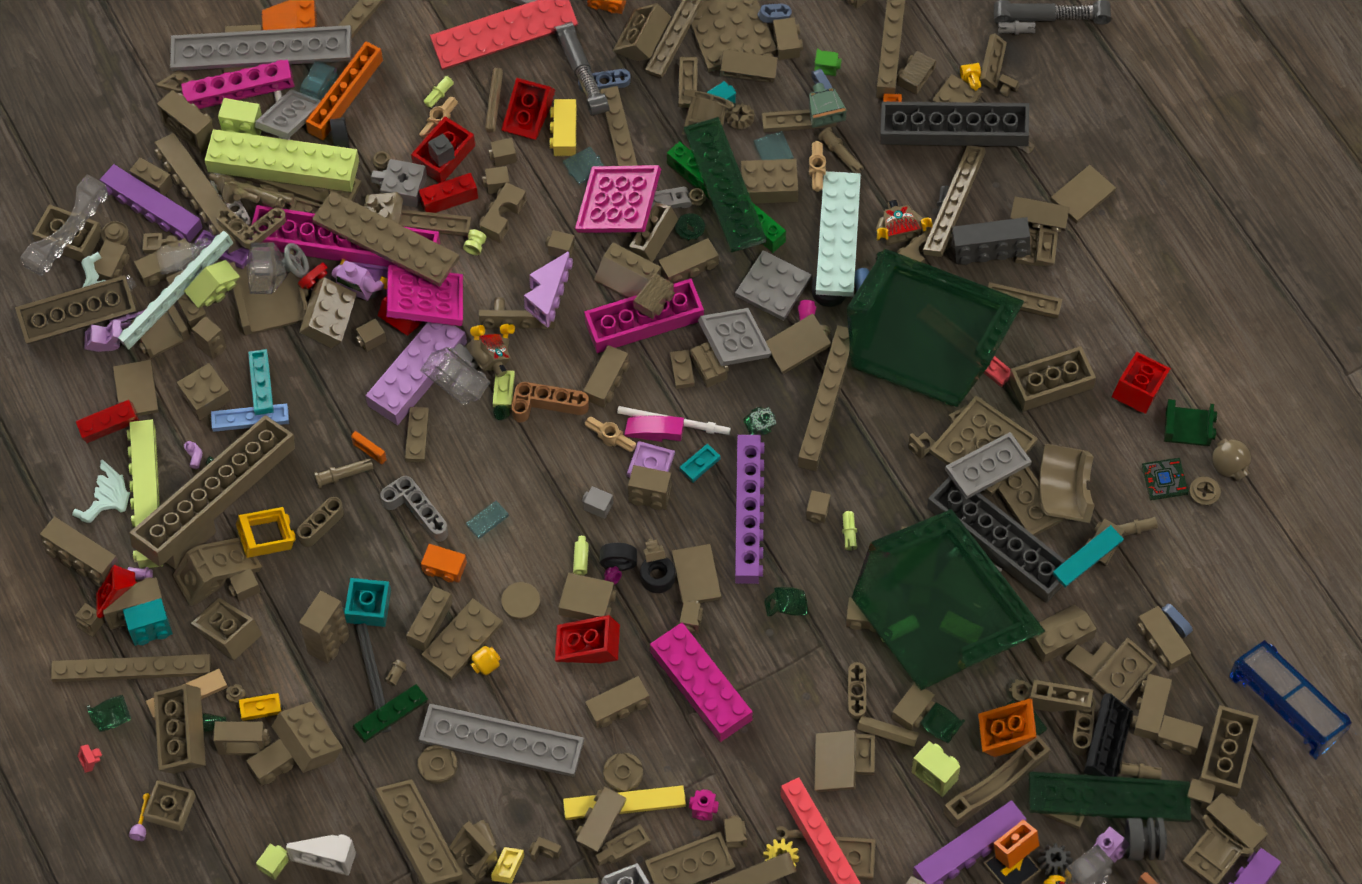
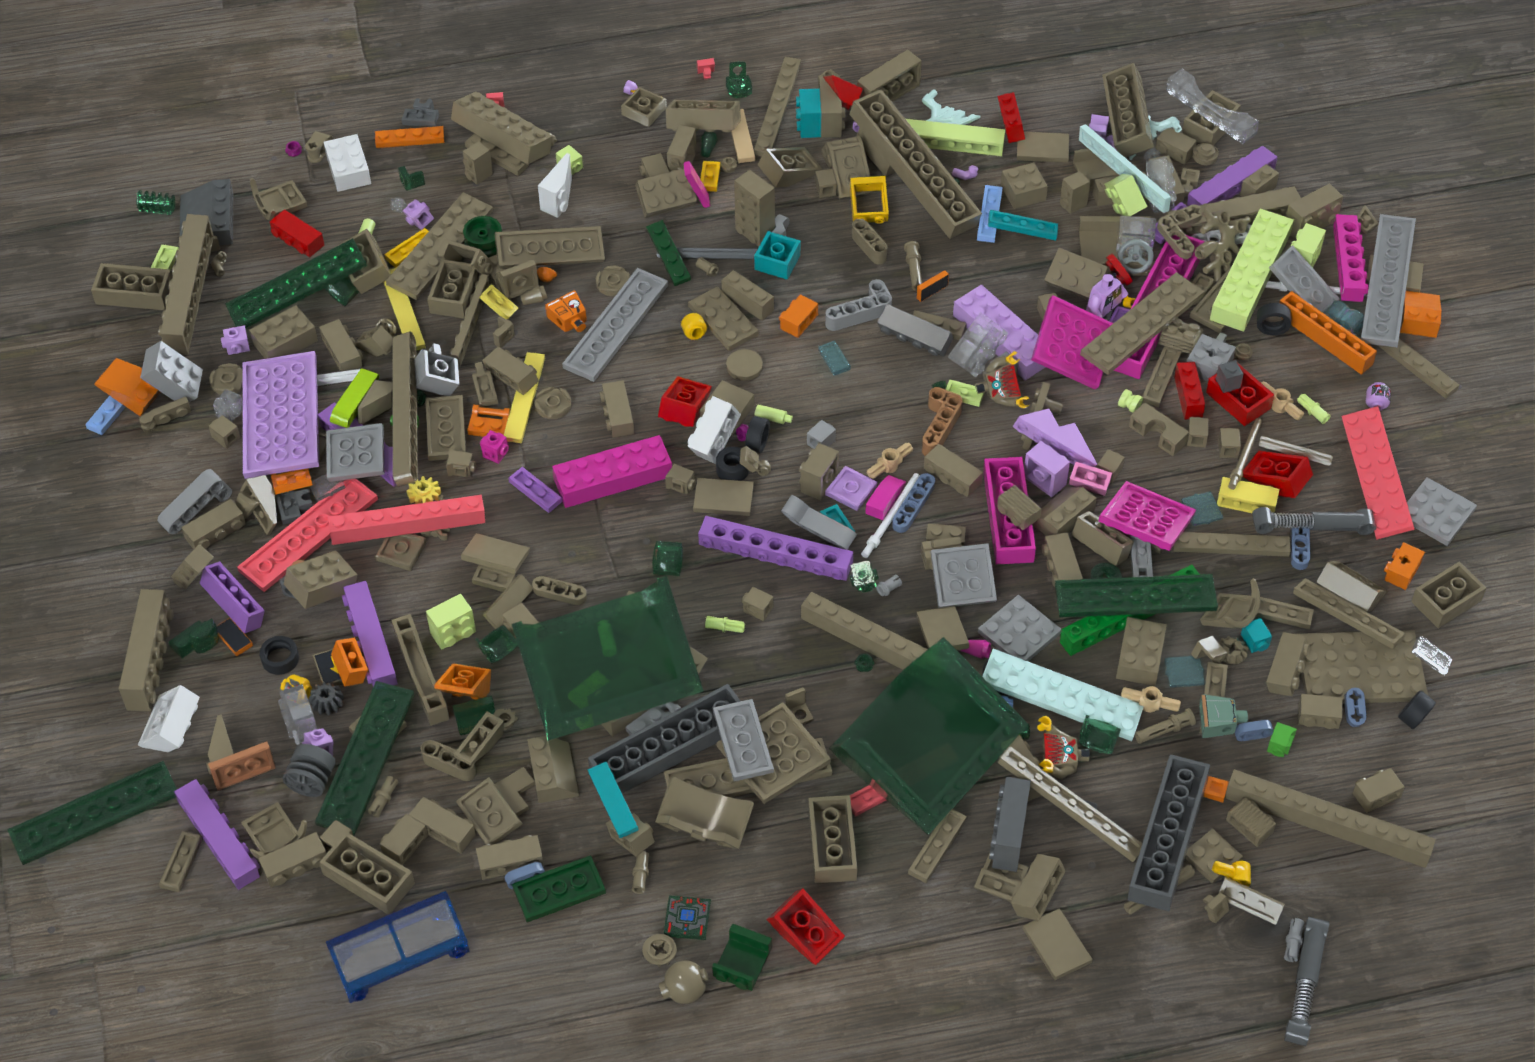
camera: 105 degrees right, 10 degrees down
(293, 702) = (696, 184): none -> dark pink tile
(412, 40) = (1378, 395): none -> lavender head
(437, 448) = (915, 330): none -> brick
(449, 832) = (546, 274): none -> orange animal
(499, 791) = (567, 312): none -> orange torso
(551, 132) = (1237, 473): none -> dark tan bar
(585, 255) = (1090, 478): none -> bright pink brick
(587, 290) = (1046, 468): none -> lavender brick
(633, 590) = (713, 429): none -> white brick
(653, 400) = (912, 502): none -> sand blue beam
(673, 825) = (481, 426): none -> orange plate
(706, 488) = (818, 523): none -> light grey beam
(743, 750) = (535, 489): none -> medium lavender plate
(750, 127) = (1210, 648): none -> dark tan panel
(758, 401) = (886, 587): none -> light grey pin
(852, 398) = (864, 658): none -> clear green plate
(870, 197) = (1099, 735): none -> clear green piece
(1108, 737) = (424, 773): black piece -> none
(1178, 587) = (558, 888): none -> dark green plate

